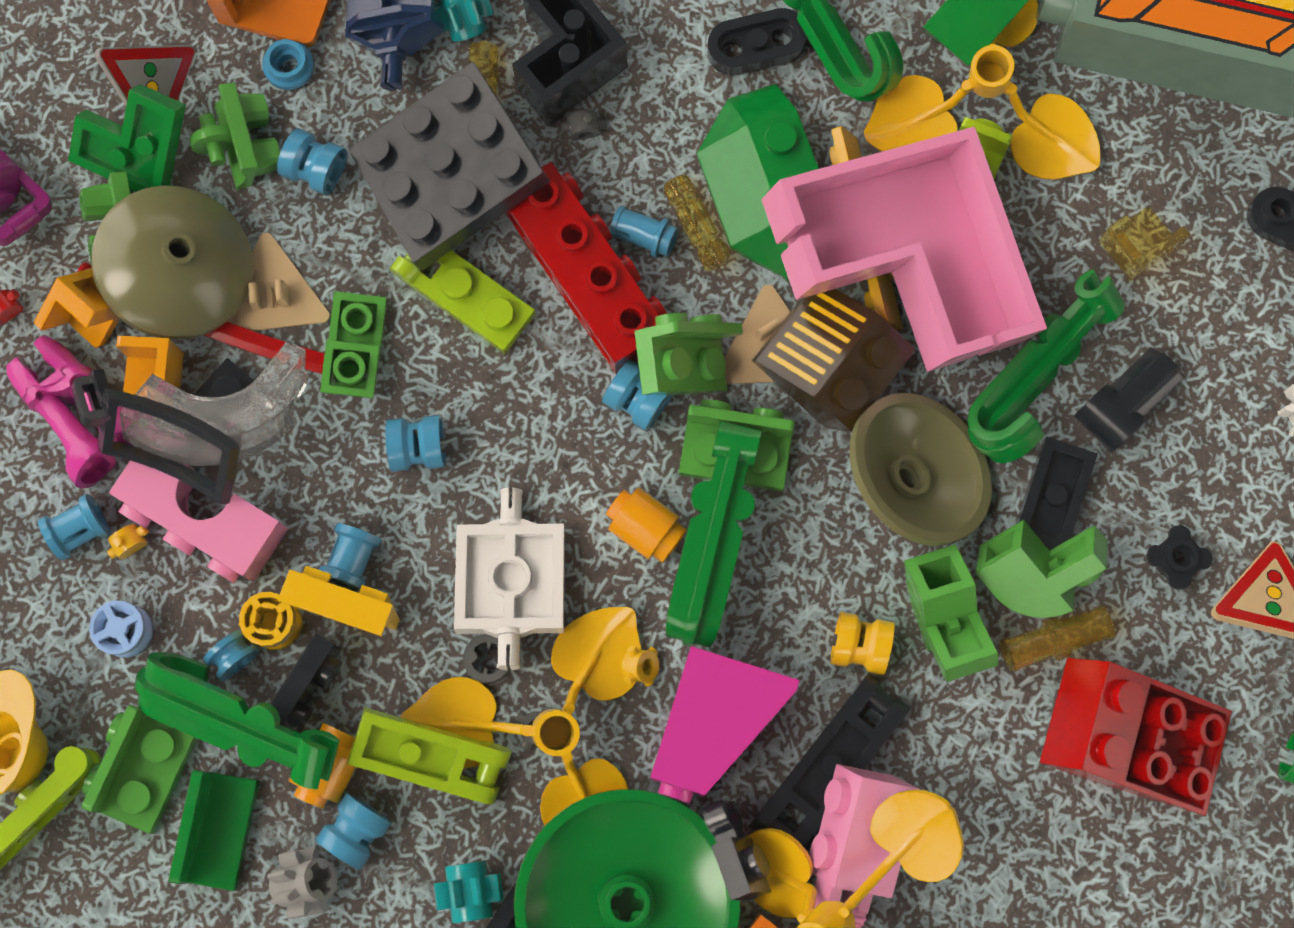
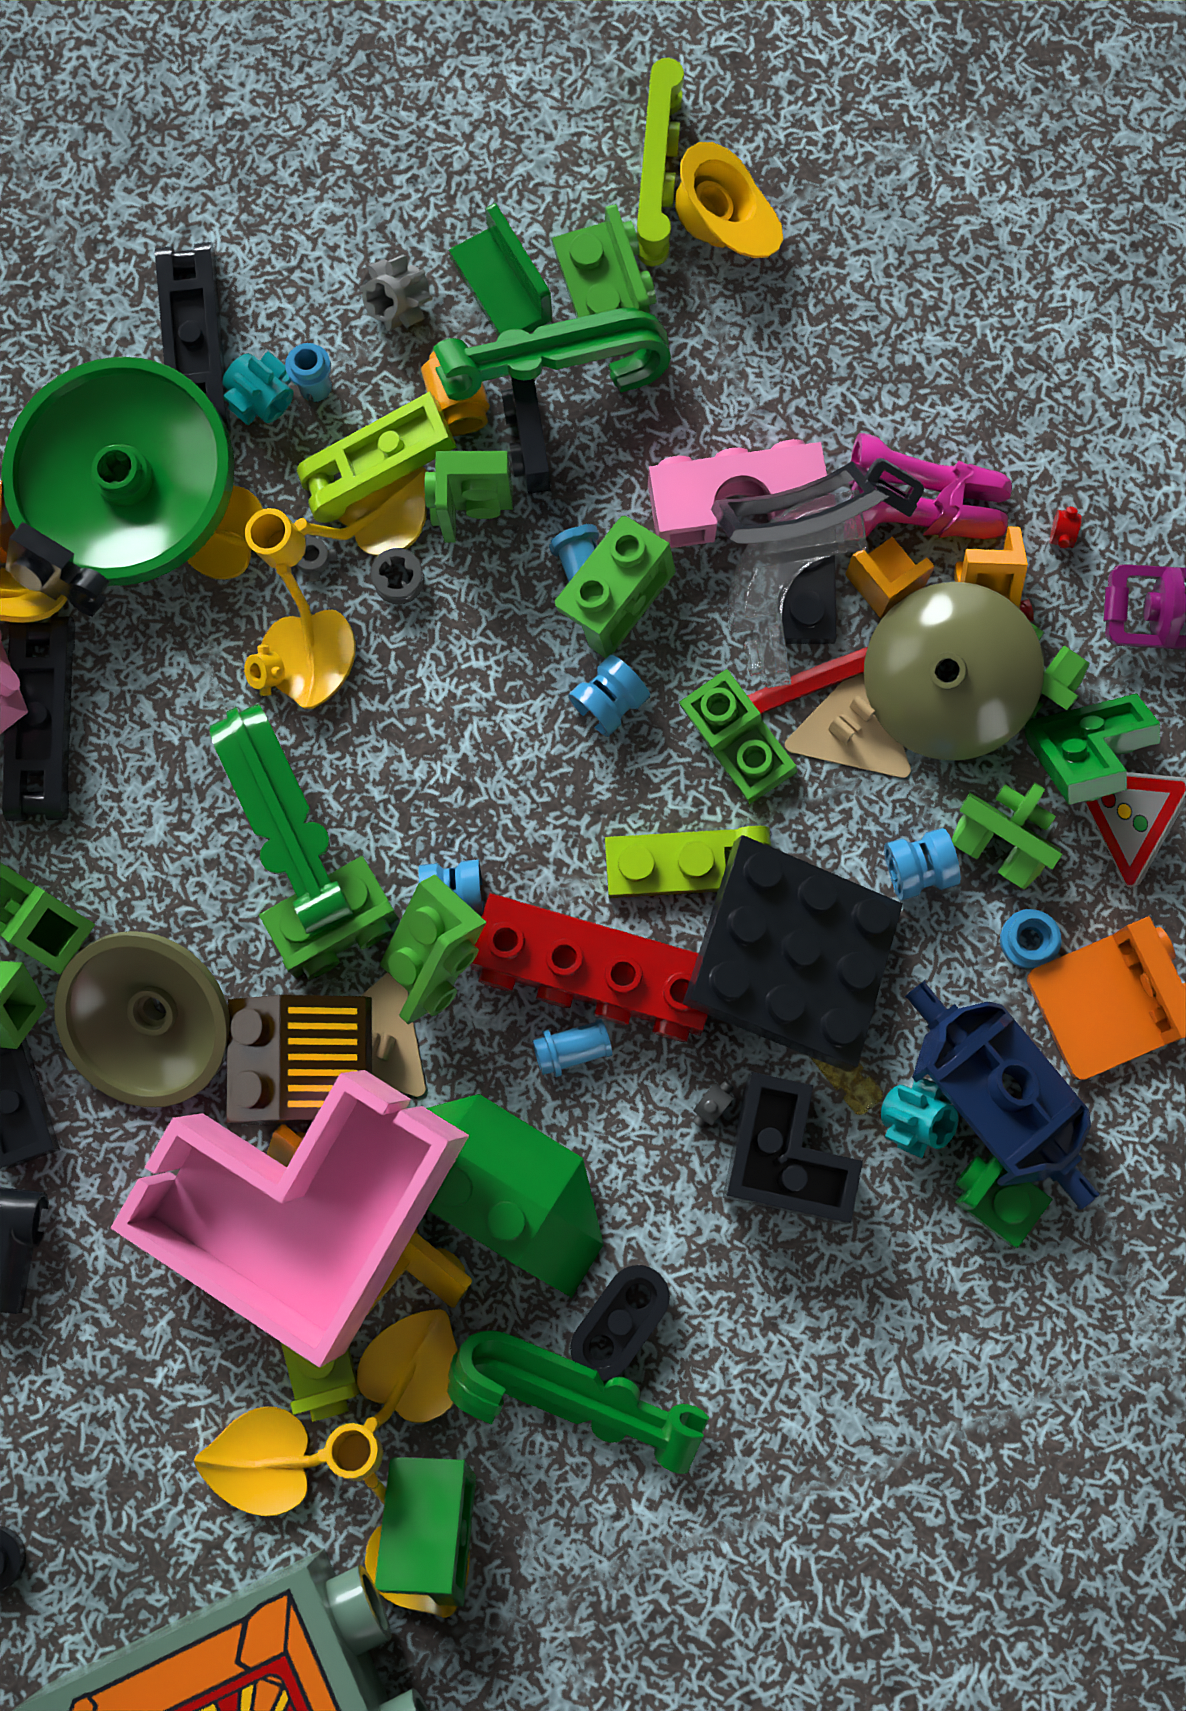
camera: 140 degrees right, 0 degrees up
(74, 527) = (830, 405): dark azure bush -> none
(111, 625) = (717, 347): light blue wheel -> none
(127, 541) = (777, 428): yellow piece -> none
(230, 655) = (608, 411): dark azure bush -> none
(278, 628) = (599, 473): yellow wheel -> none
(341, 514) = (617, 584): none -> bright green bracket
(353, 831) = (390, 361): dark azure wheel -> none
(366, 610) = (570, 498): yellow piece -> none
(379, 665) = (467, 482): none -> bright green bracket
(405, 865) = (309, 369): none -> dark azure pin
(509, 578) = (431, 649): white plate -> none
(645, 524) = (353, 786): light orange brick -> none
(696, 222) = (532, 1097): clear yellow axle -> none
(713, 720) = (151, 662): dark pink slope -> none
(874, 644) = (76, 840): yellow wheel -> none
(995, 411) = (107, 1253): green piece -> none
(1140, 242) = (98, 1420): clear yellow panel -> none

